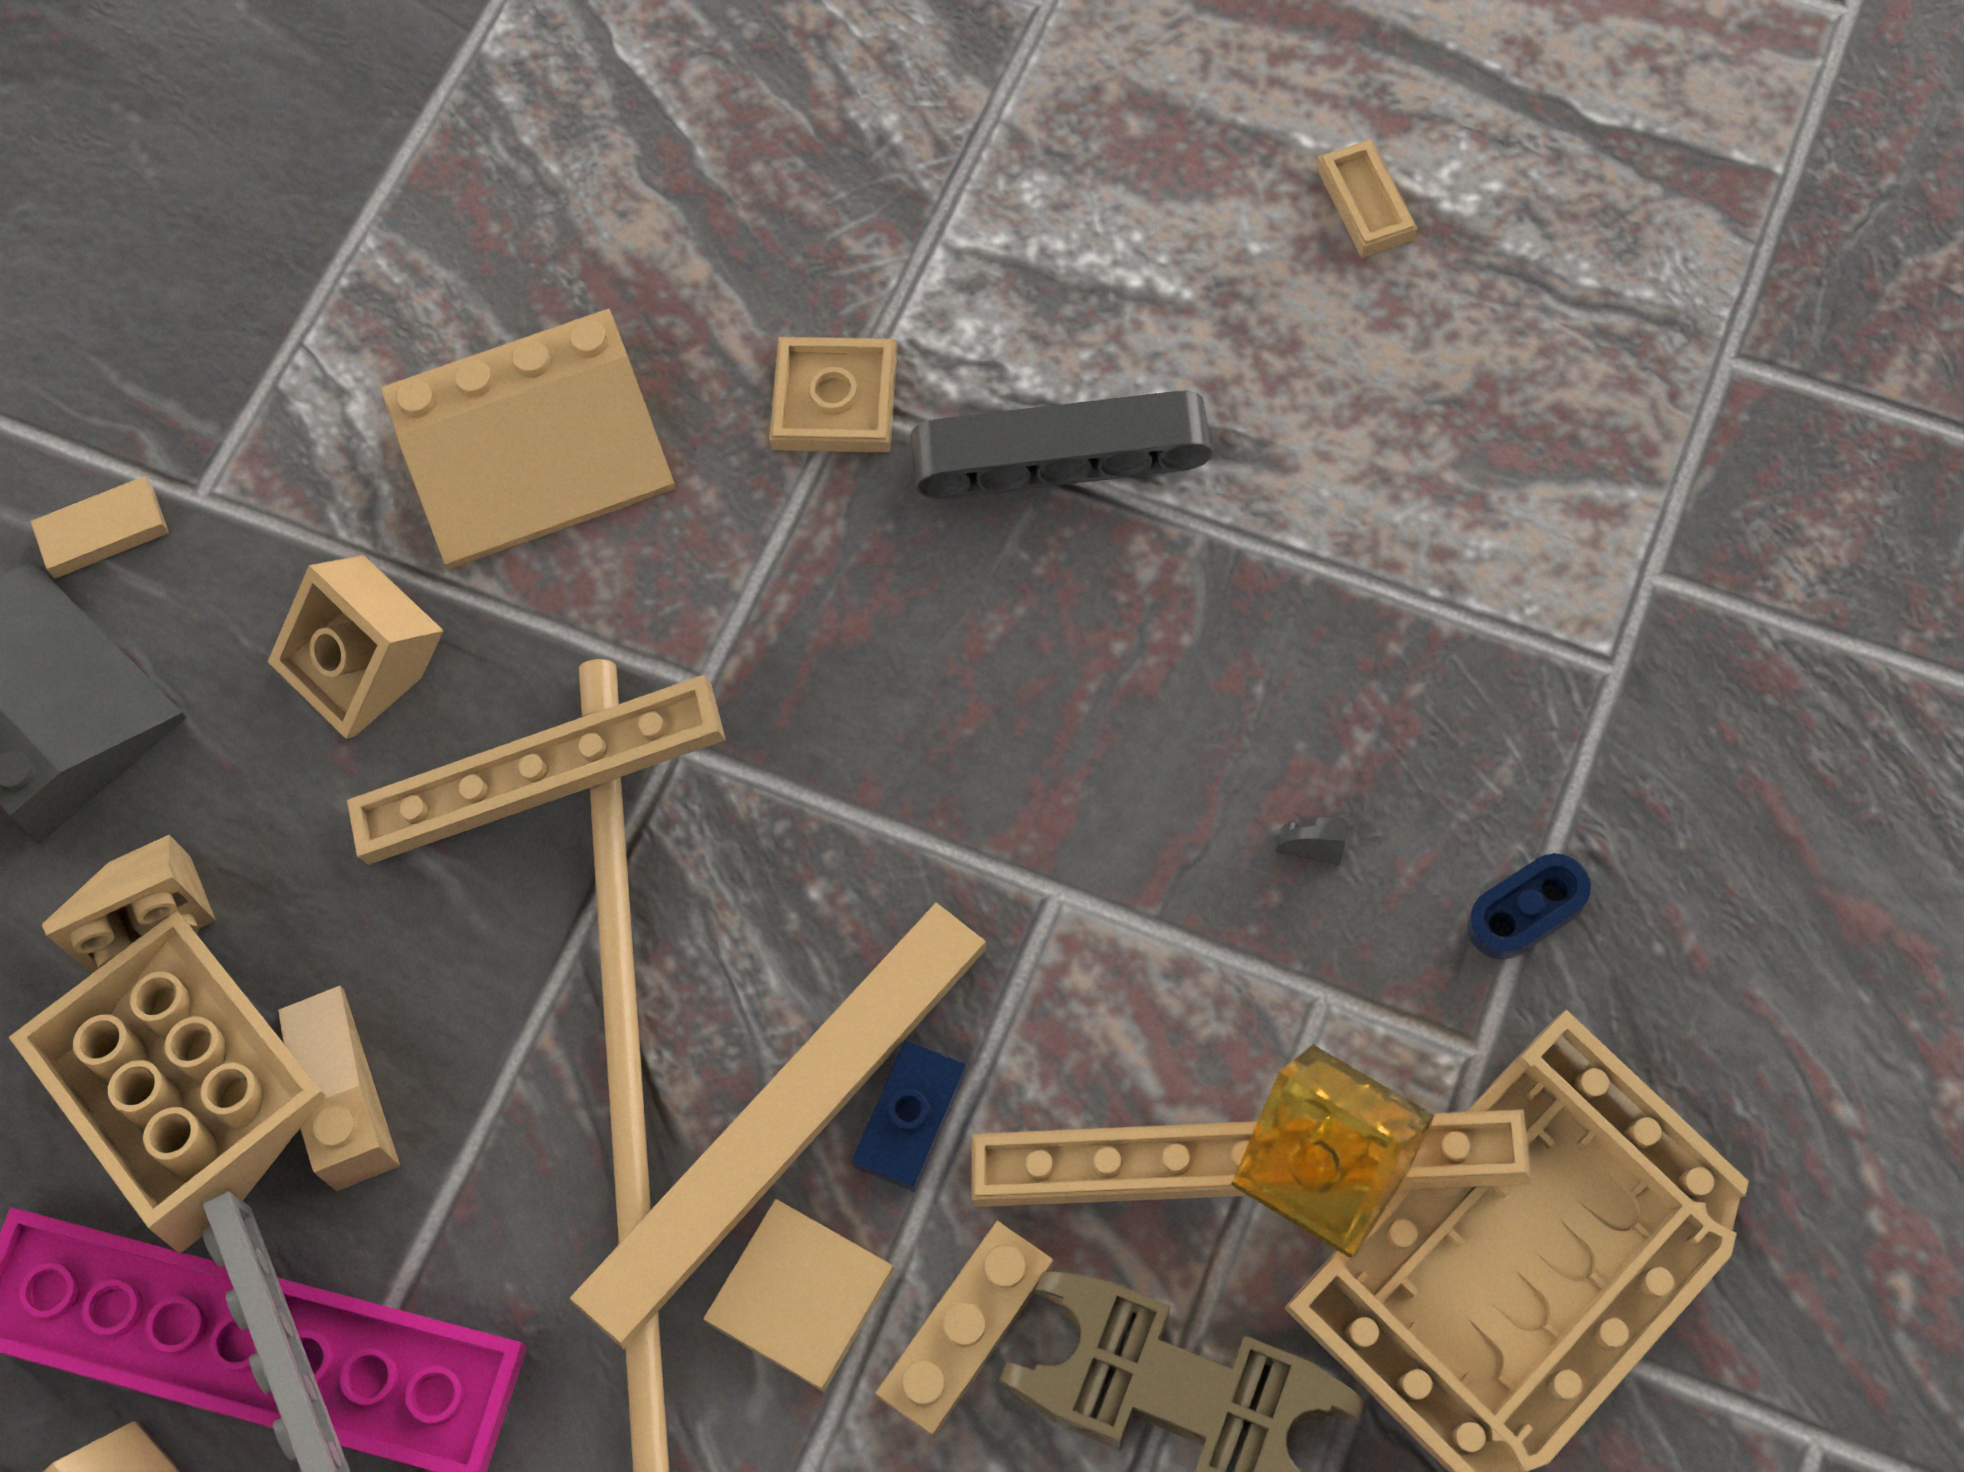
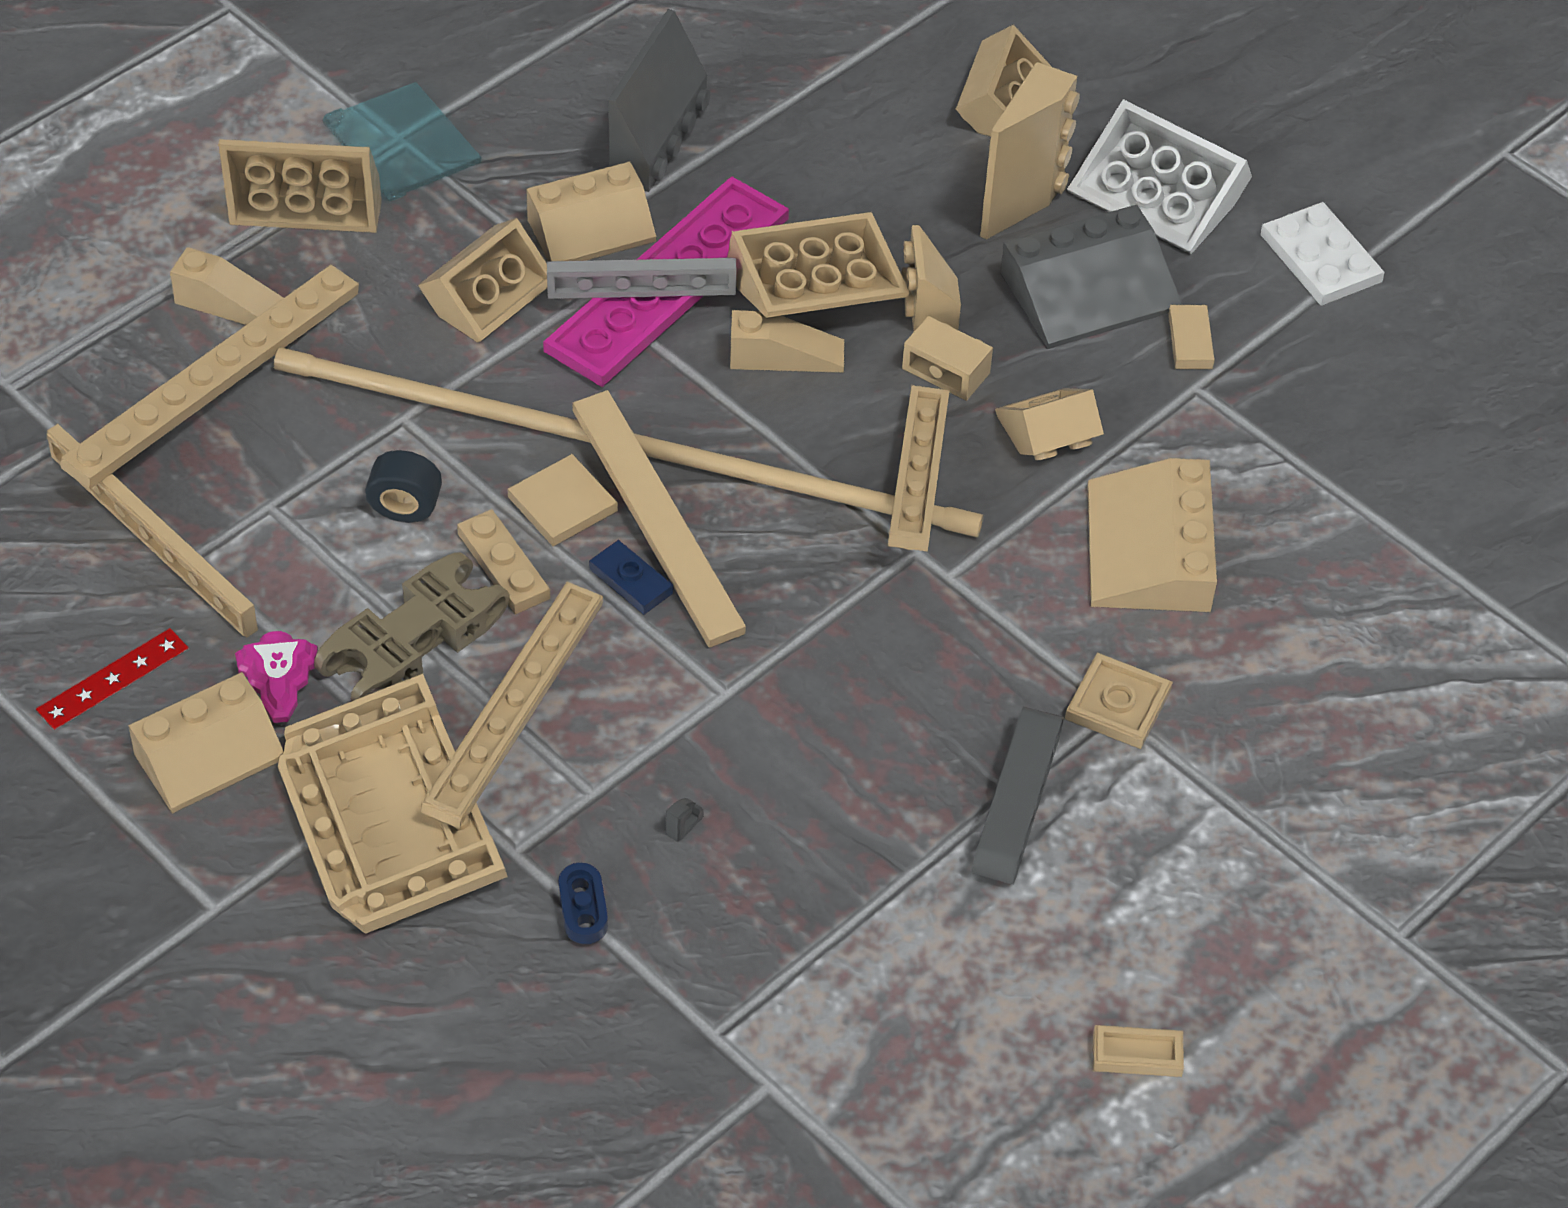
camera: 105 degrees right, 15 degrees down
(274, 830) = (947, 358): none -> tan brick
(1331, 1149) = (492, 716): clear yellow slope -> none

